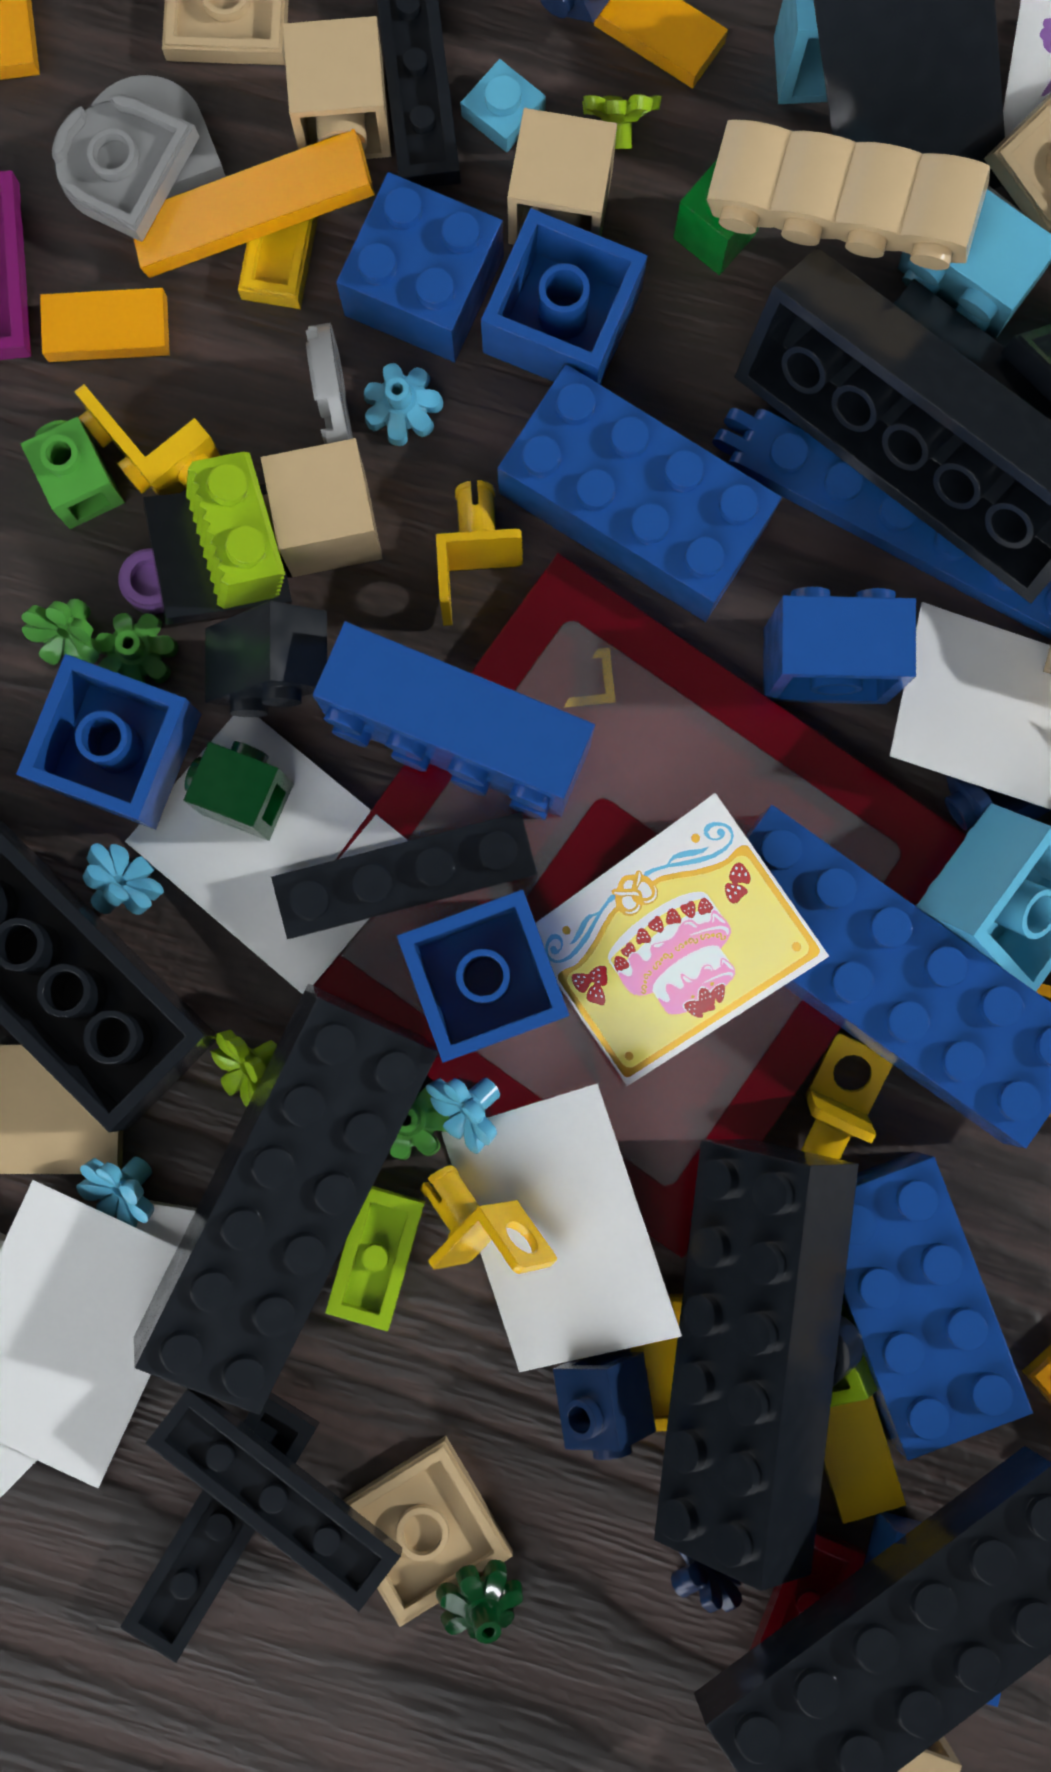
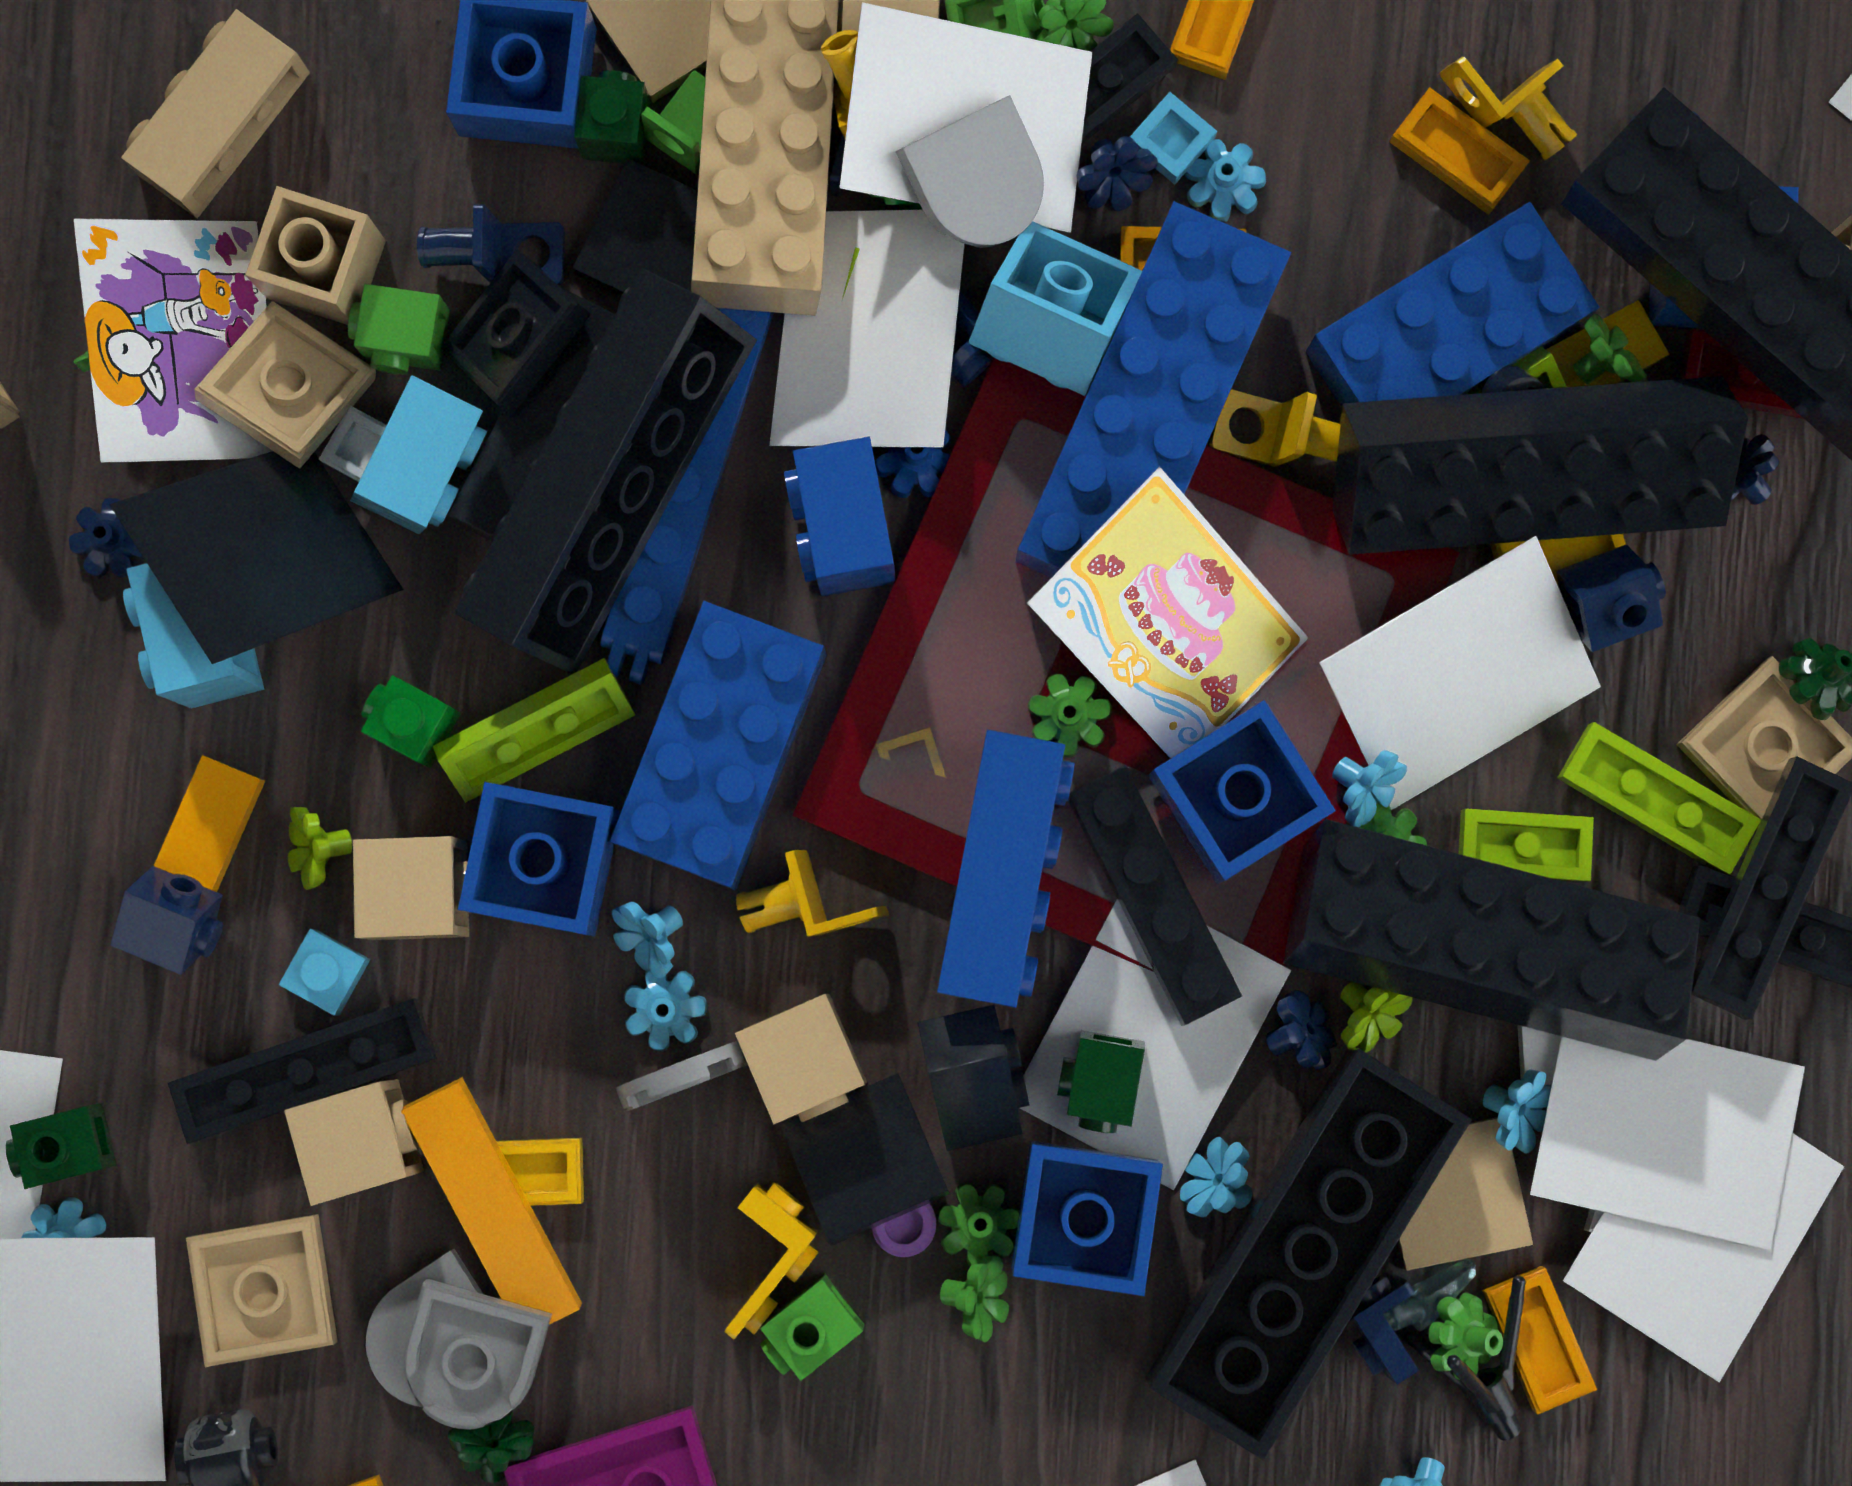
camera: 100 degrees left, 0 degrees up
(35, 167) = (492, 1446): none -> dark green plant
(104, 324) = (643, 1336): light orange tile -> none
(234, 529) = (848, 1137): lime brick -> none
(243, 995) = (1303, 1031): none -> dark blue plant
(392, 1404) = (1659, 799): none -> lime plate
(421, 267) = (525, 1015): blue brick -> none
(473, 399) = (647, 935): none -> medium azure plant
(476, 1225) = (1475, 755): yellow bracket -> none
(594, 845) = (1073, 729): none -> bright green plant
(689, 330) = (534, 730): none -> lime plate
(848, 191) = (402, 593): tan brick -> none
(856, 1458) = (1607, 354): none -> bright green plant
(872, 743) = (913, 468): none -> blue plant

